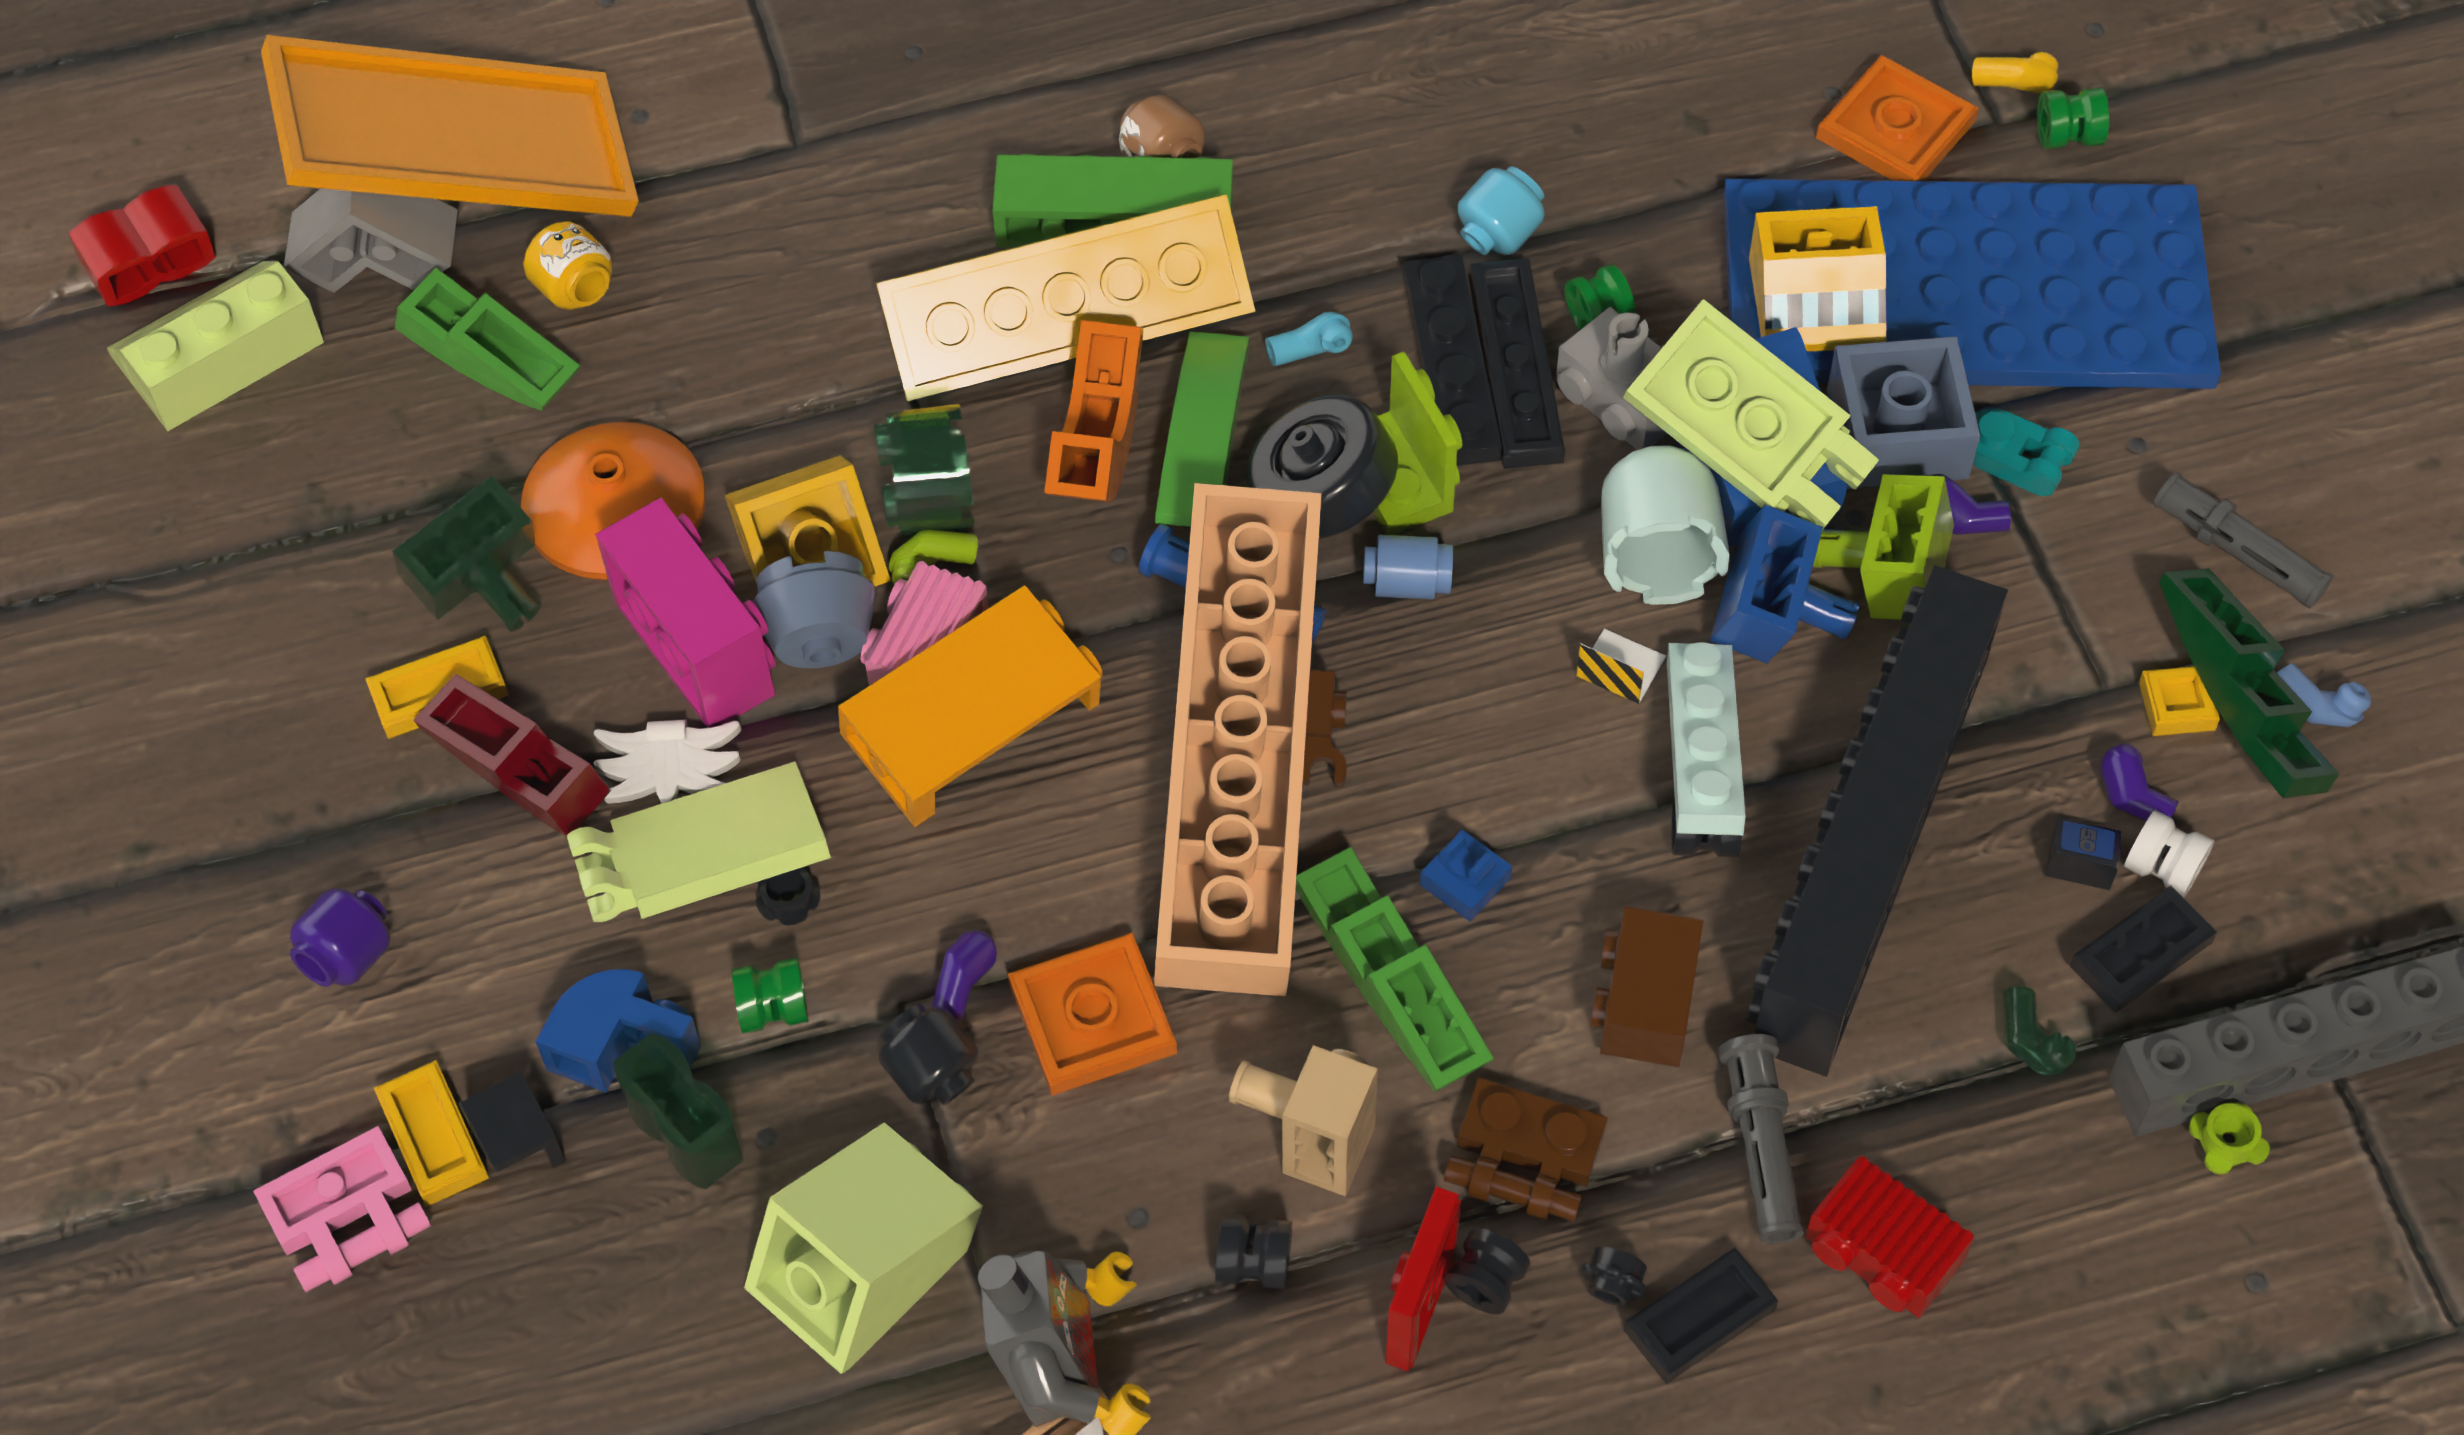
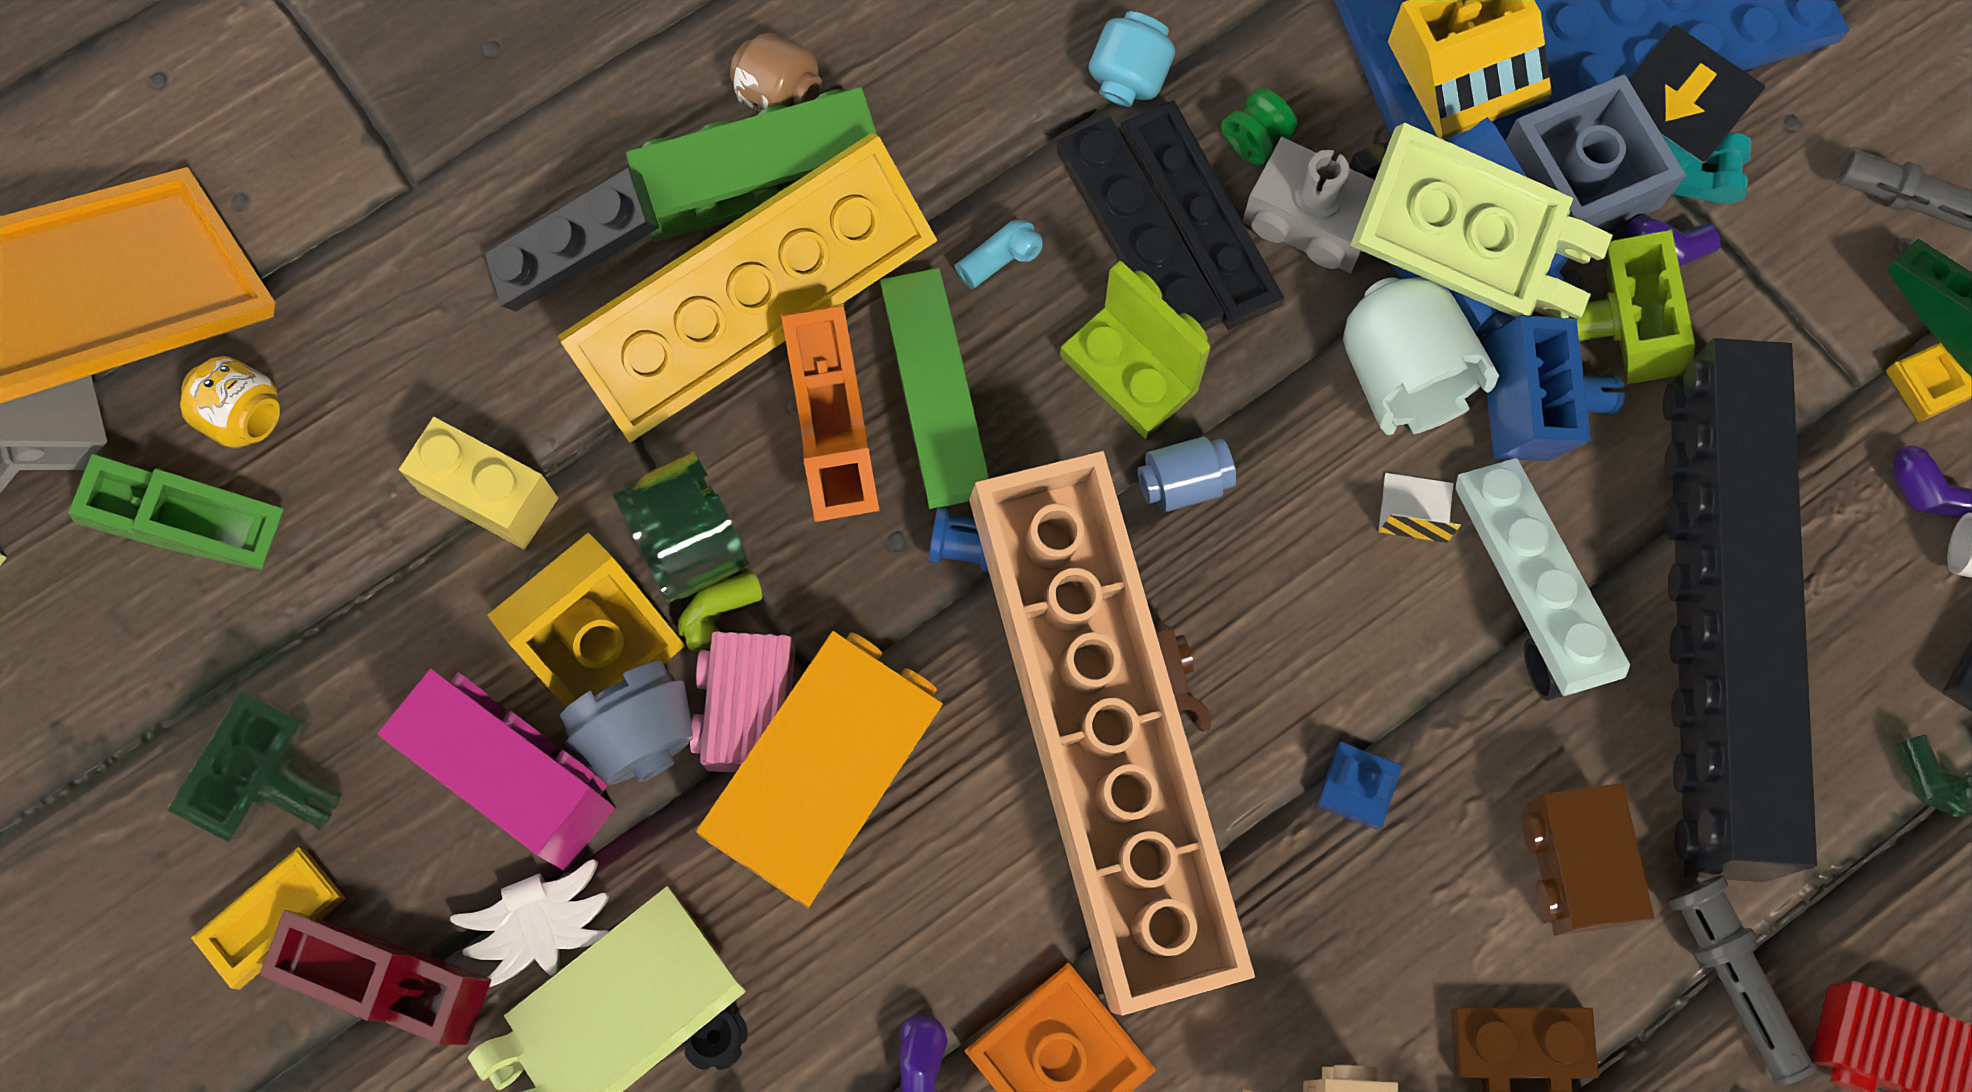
camera: 20 degrees left, 15 degrees up
(574, 503) = (411, 624): orange dish -> none
(760, 391) = (479, 483): none -> light yellow brick
(921, 217) = (572, 240): none -> black plate
(1329, 449) = (1069, 393): black wheel -> none
(1392, 970) = (1335, 920): bright green slope -> none
(2031, 381) = (1693, 92): none -> black sticker
(2084, 853) = (1912, 569): black slope -> none

